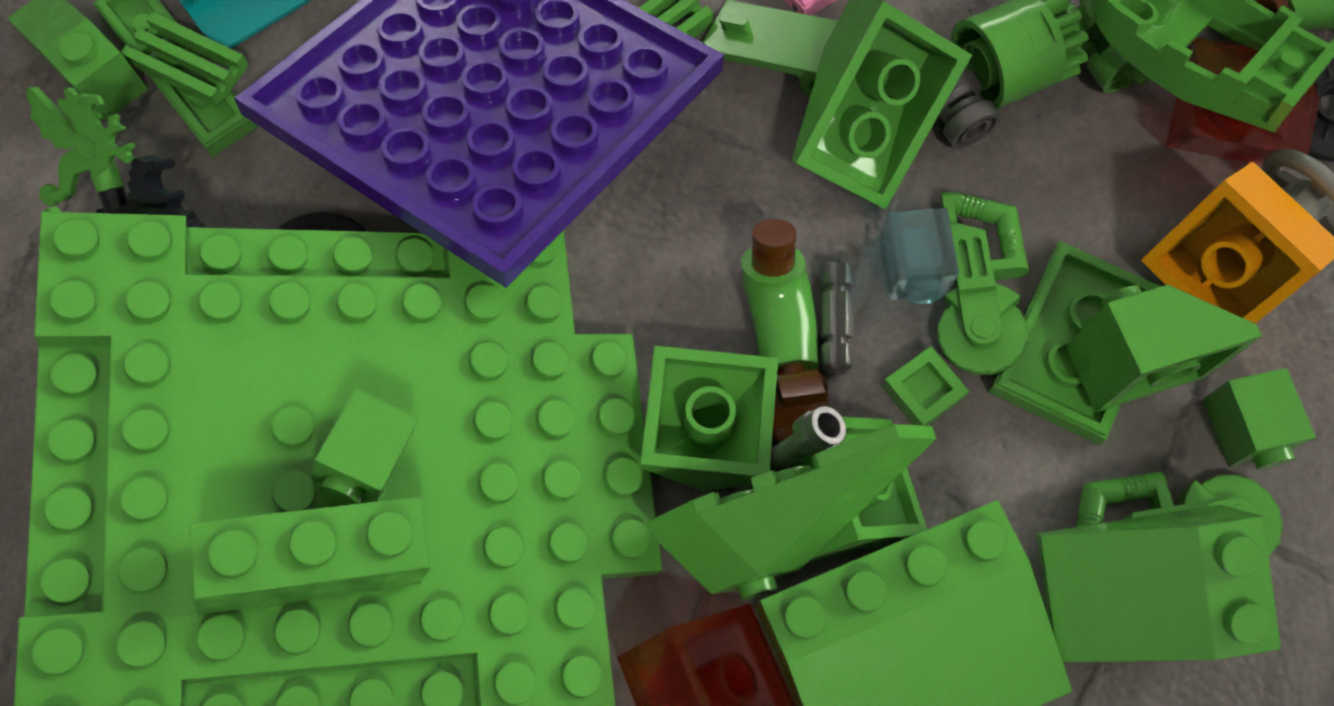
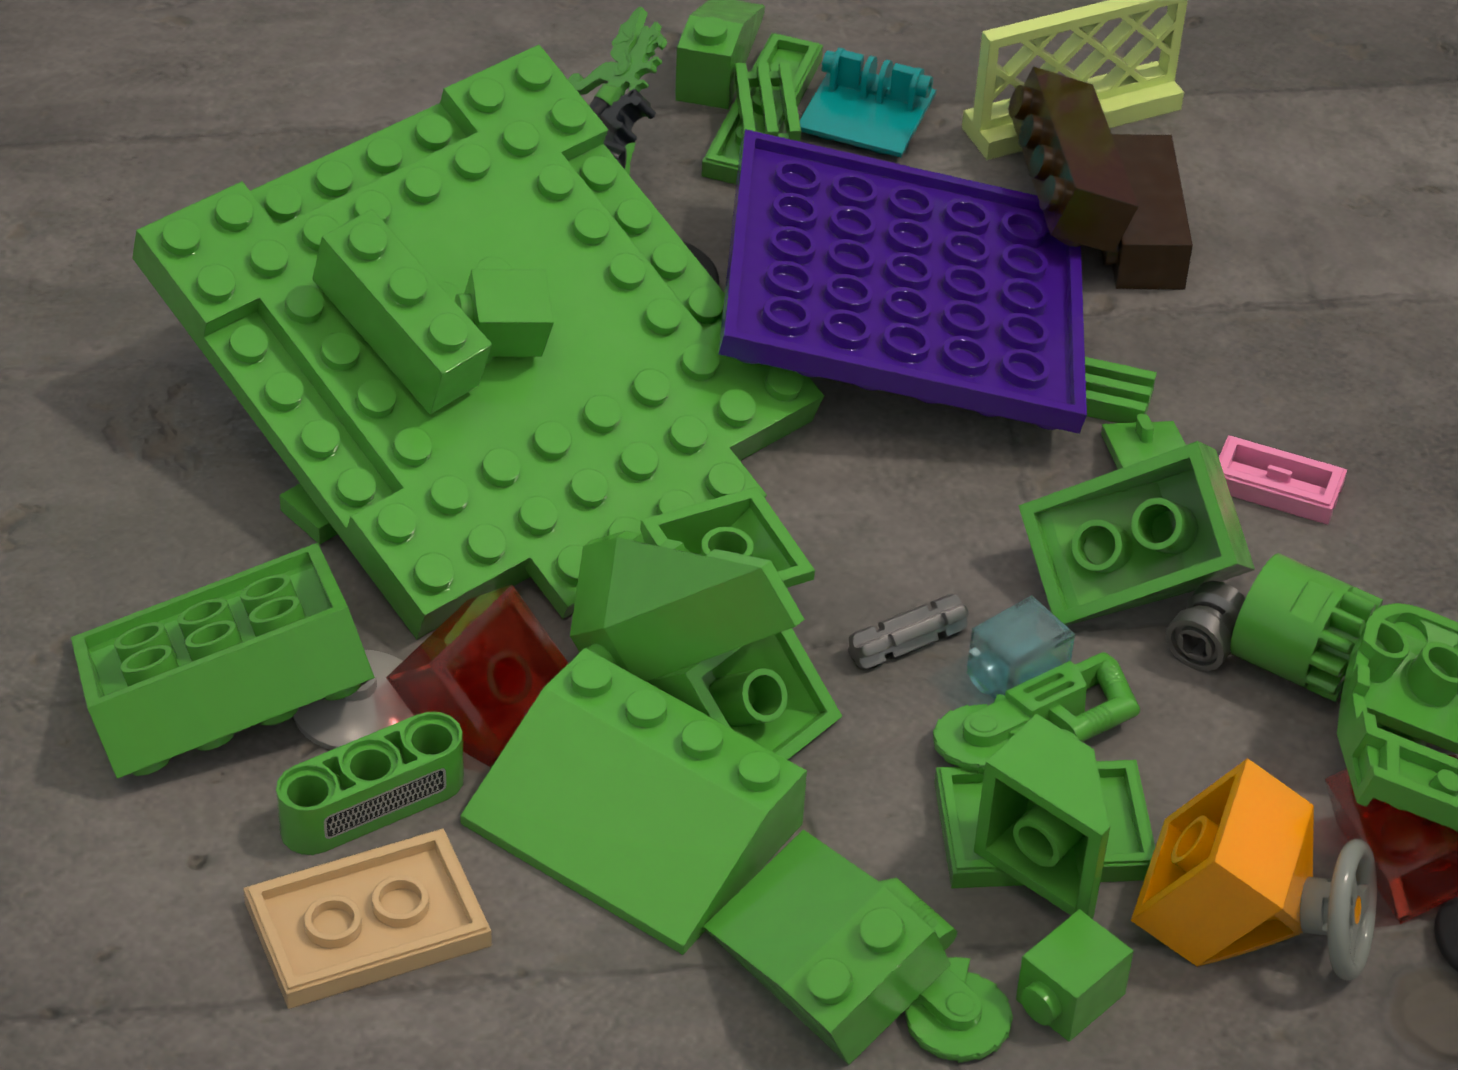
camera: 55 degrees right, 25 degrees down
(784, 321) = (875, 586): piece -> none
(925, 388) = (893, 726): bright green tile -> none

